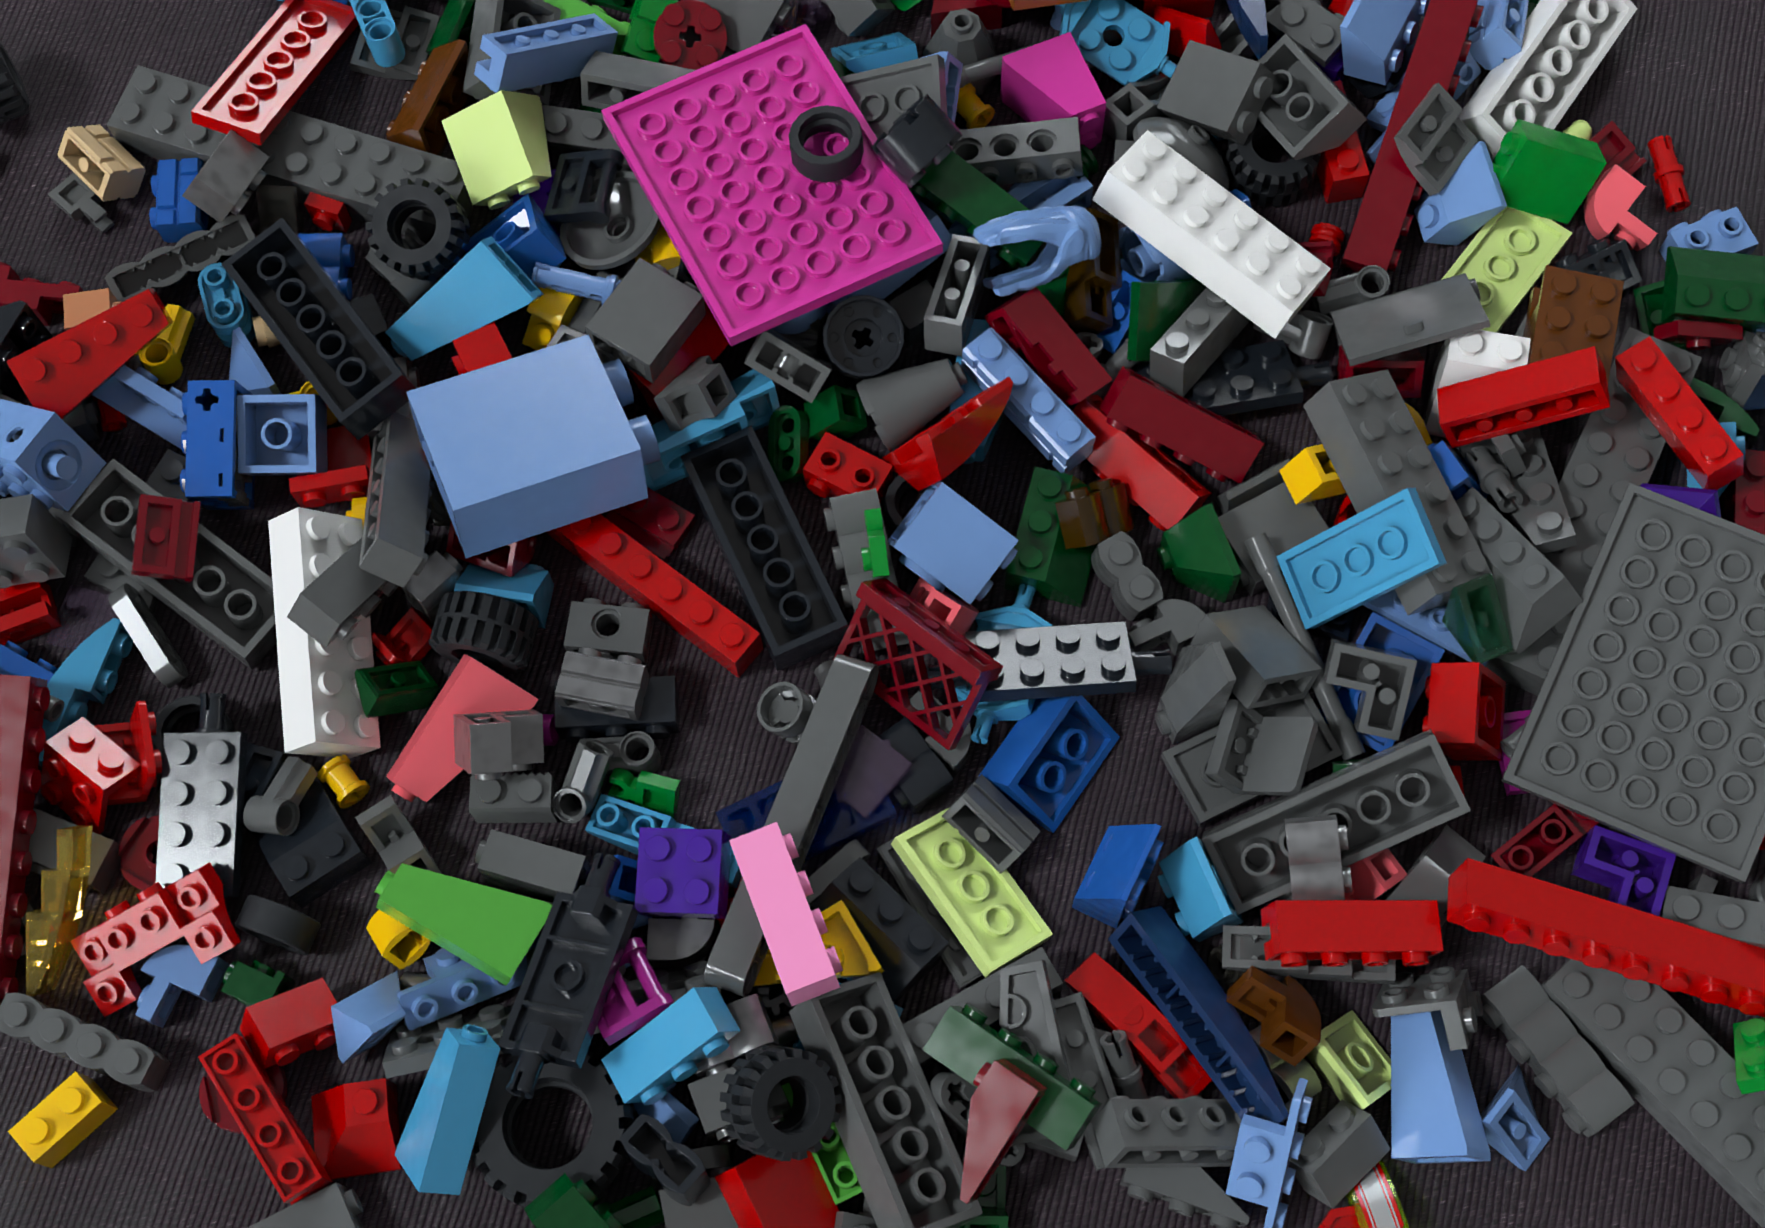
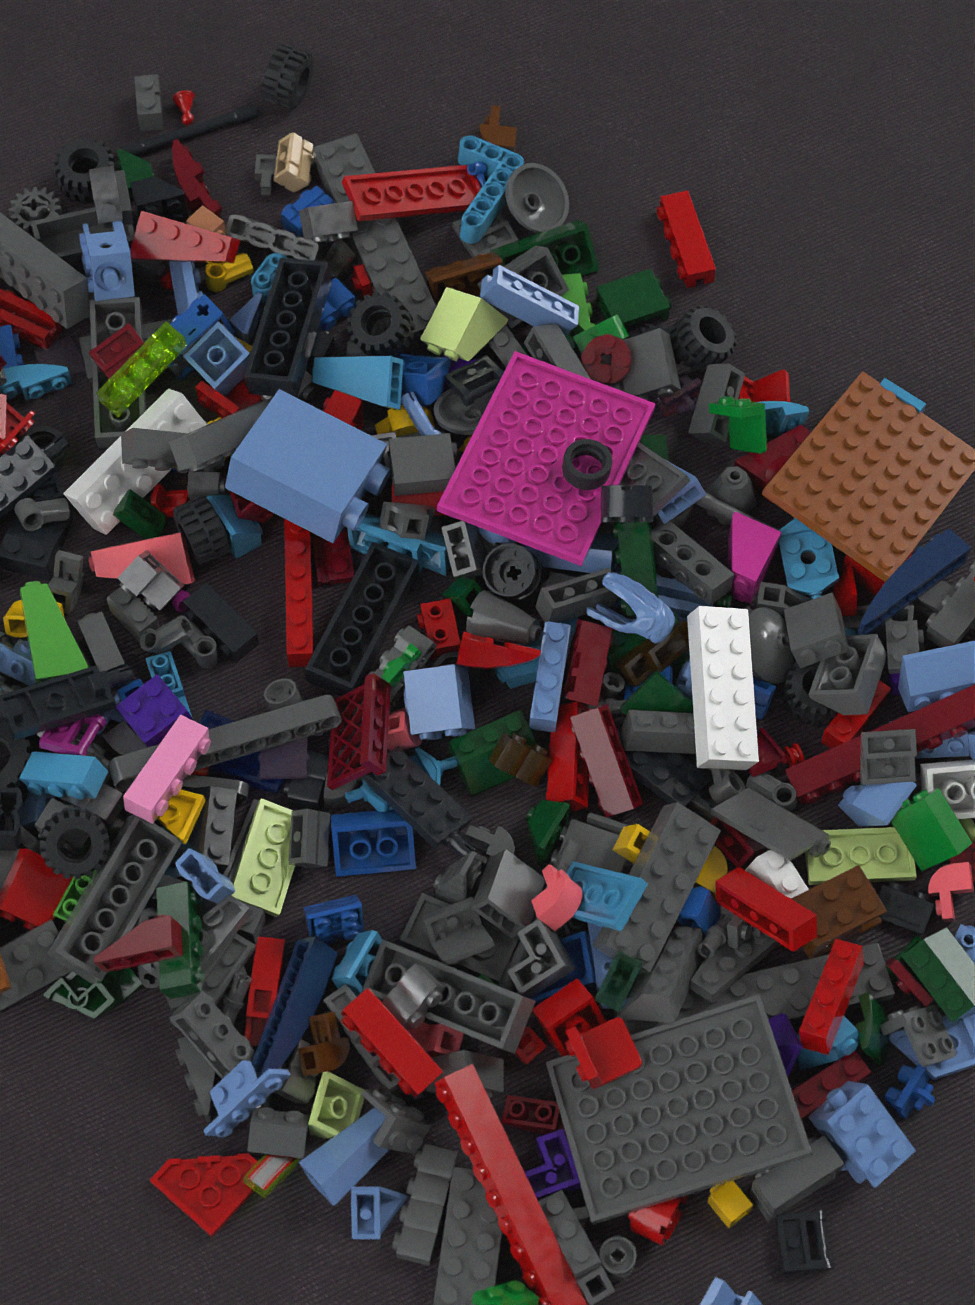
camera: 45 degrees right, 5 degrees down
(148, 635) = (73, 389): dark grey beam -> none
(217, 528) = (141, 369): none -> clear neon green brick
(343, 781) = (77, 533): yellow bush -> none
(592, 615) = (259, 601): dark grey brick -> none
(602, 683) = (220, 602): flat silver brick -> none
(648, 790) = (190, 672): green plate -> none
(787, 445) = (430, 587): dark green plate -> none
(876, 52) = (689, 456): dark azure slope -> none
(942, 980) = (204, 876): none -> medium blue brick
(973, 109) = (705, 524): yellow bush -> none
(1120, 567) = (505, 796): dark grey brick -> none
(1330, 604) = (558, 900): none -> coral brick
(1557, 703) = (603, 1052): none -> red bracket

